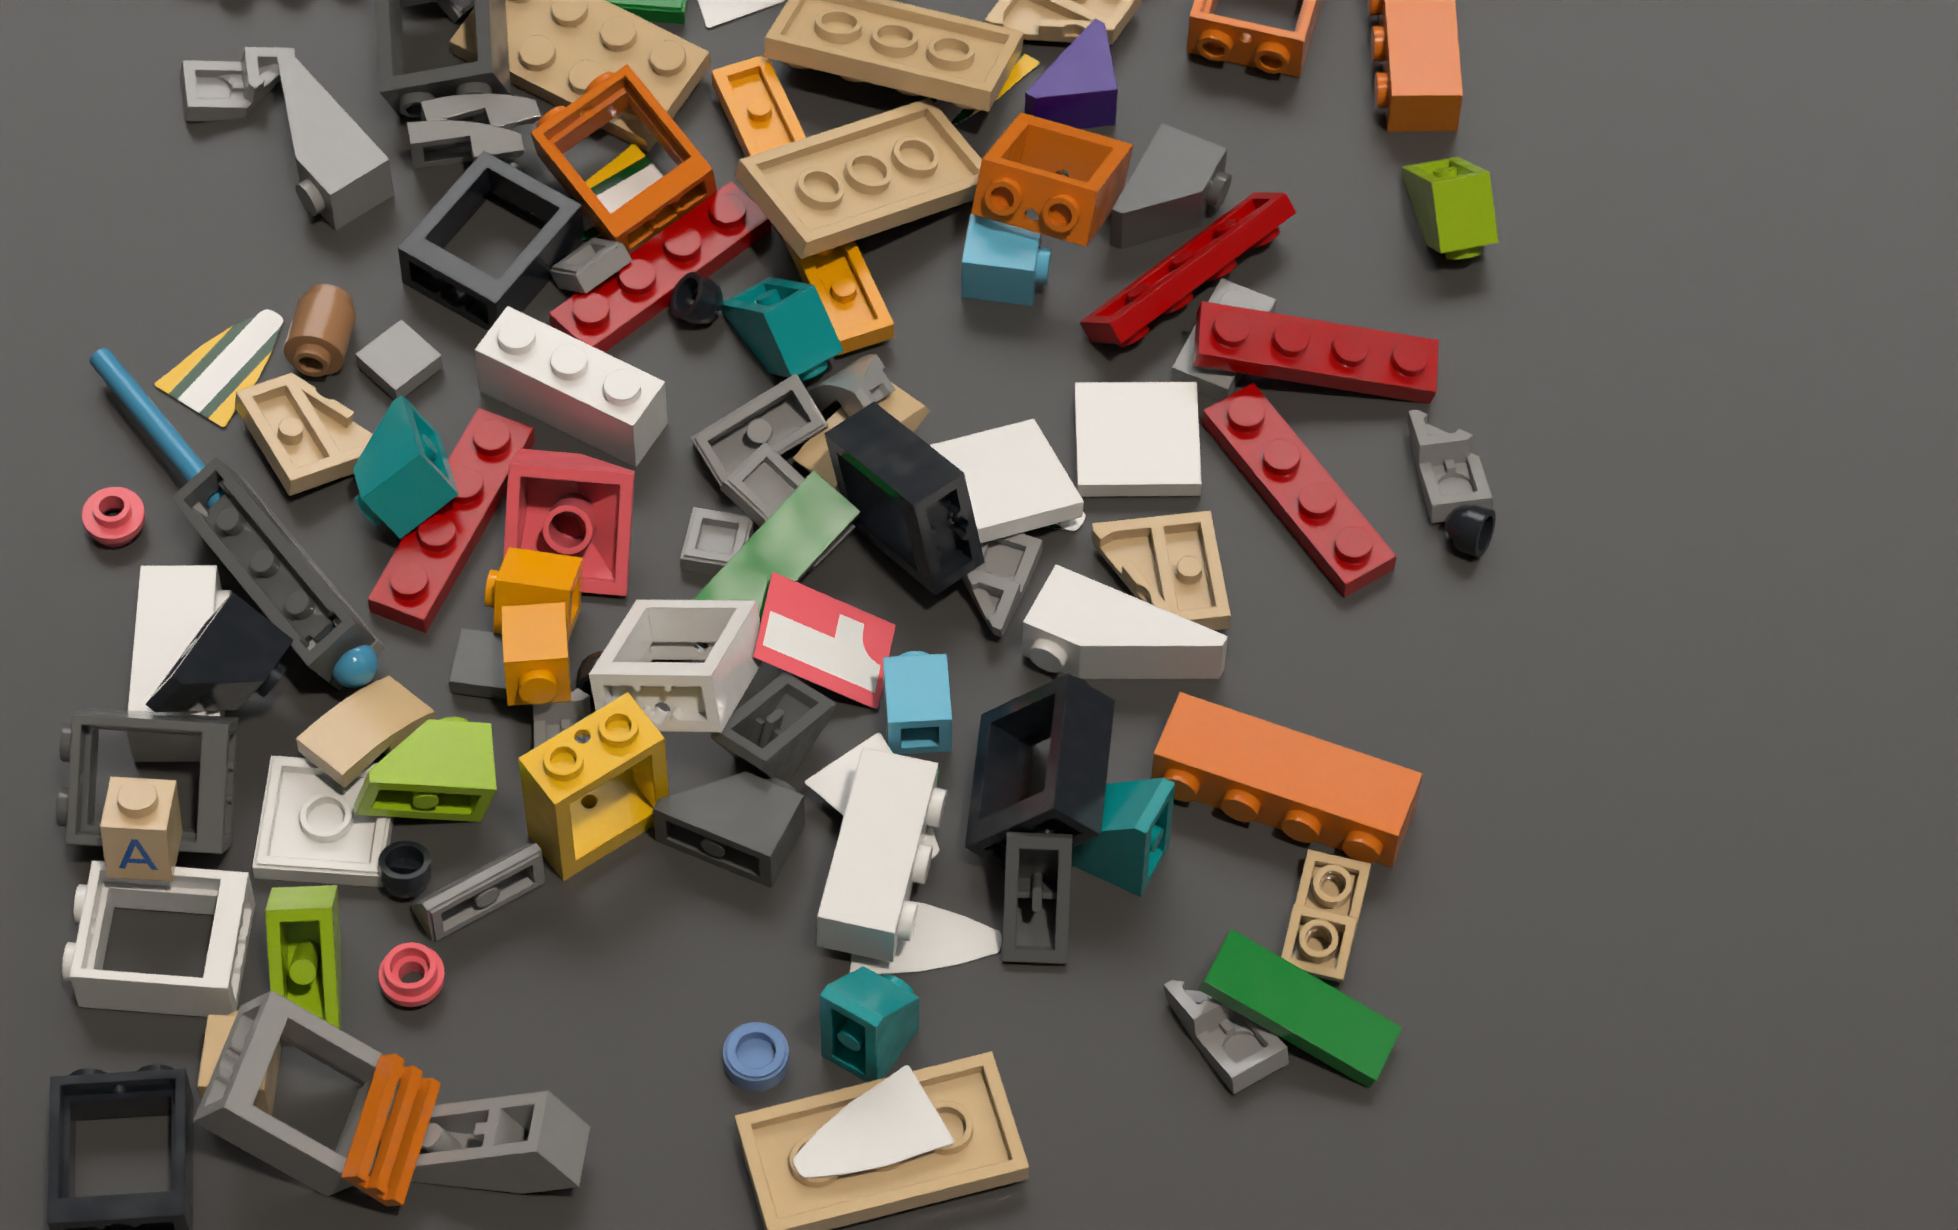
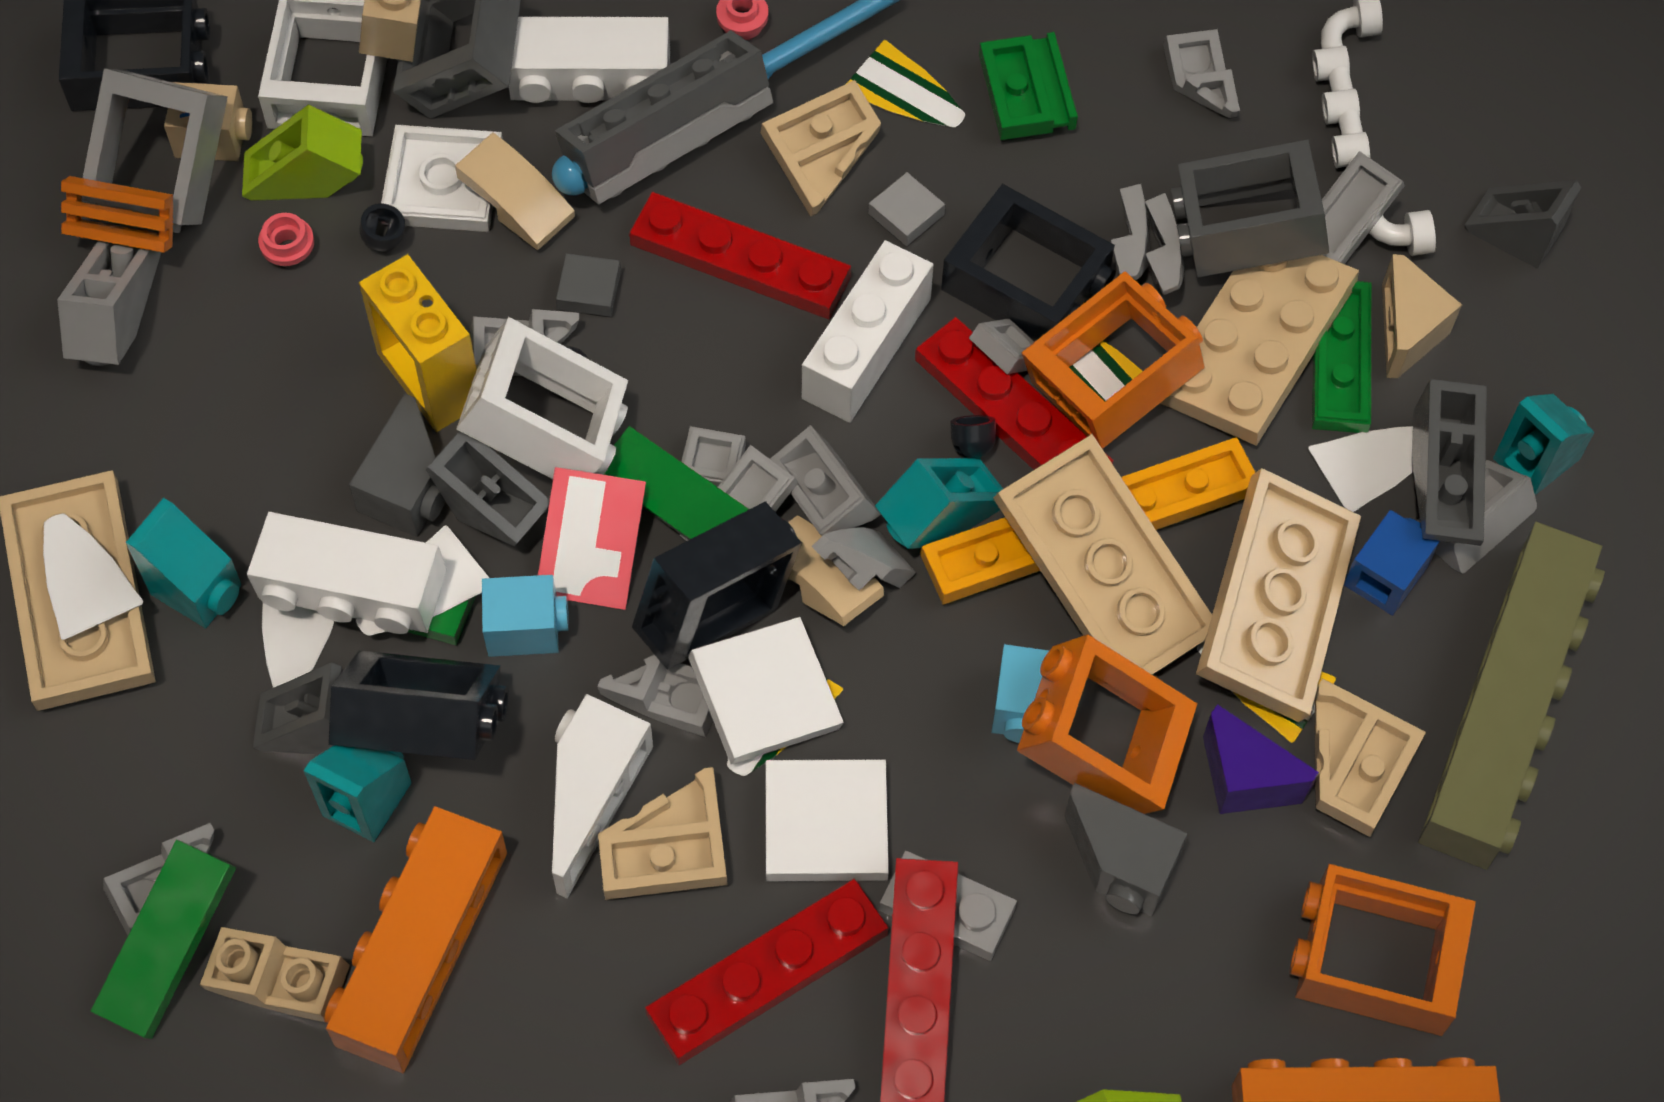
camera: 90 degrees right, 5 degrees up
(224, 662) = (554, 67): black slope -> none
(243, 239) = (1027, 86): none -> green plate
(320, 330) = (929, 144): medium nougat brick -> none
(335, 159) = (1129, 135): light grey slope -> none
(403, 471) = (777, 205): teal slope -> none
(434, 774) = (464, 238): lime slope -> none
(480, 891) = (349, 264): light grey slope -> none
(535, 579) = (642, 309): light orange brick -> none
(536, 653) = (566, 300): light orange brick -> none
(573, 509) = (724, 324): coral slope -> none
(756, 1056) = (188, 491): medium blue tile -> none
(1200, 259) = (1027, 868): red plate -> none

